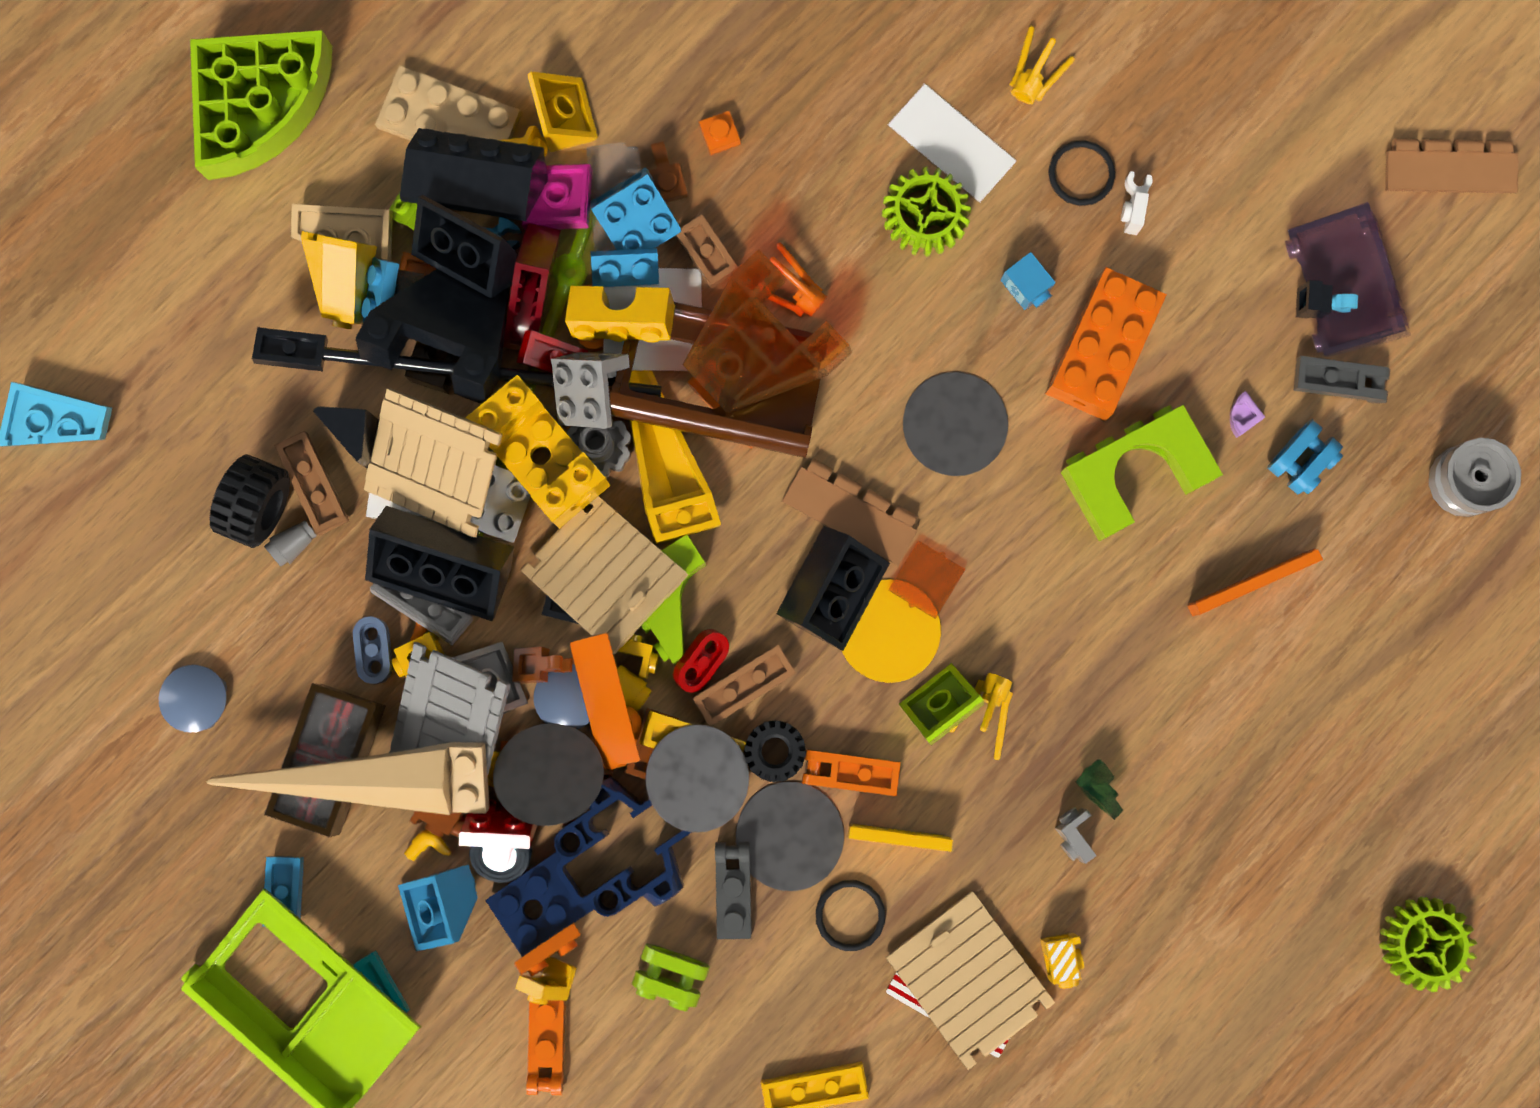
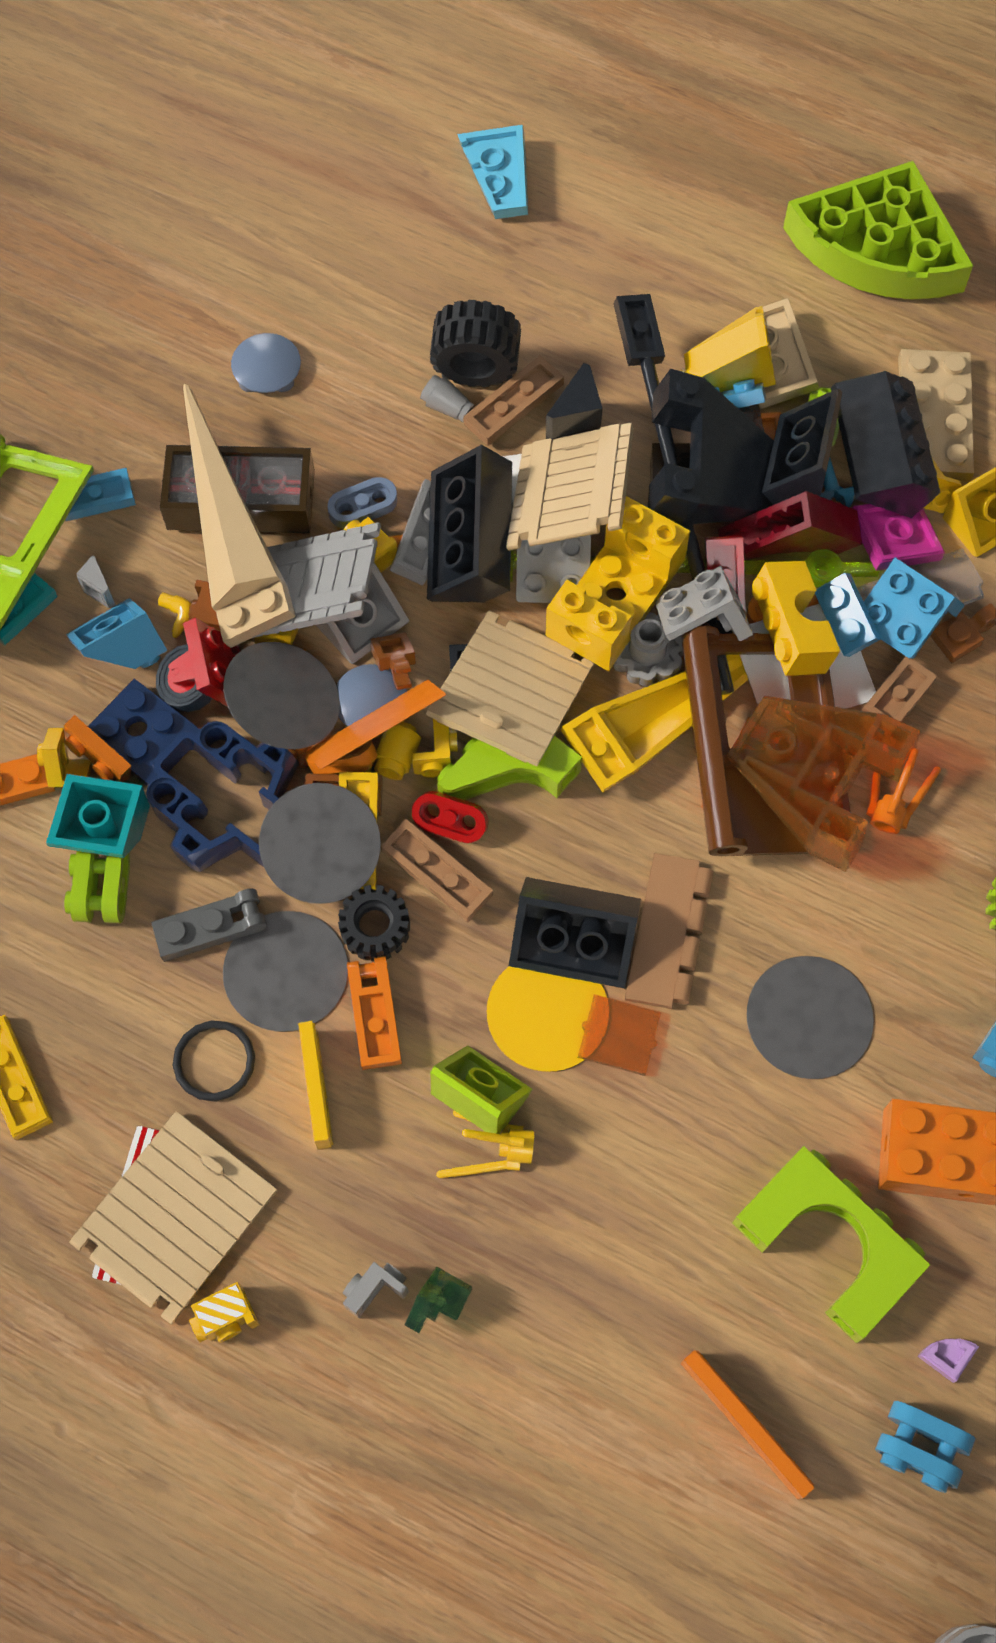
camera: 75 degrees right, 15 degrees down
(375, 913) = (94, 584): none -> light grey slope
(616, 964) = (99, 816): none -> teal slope

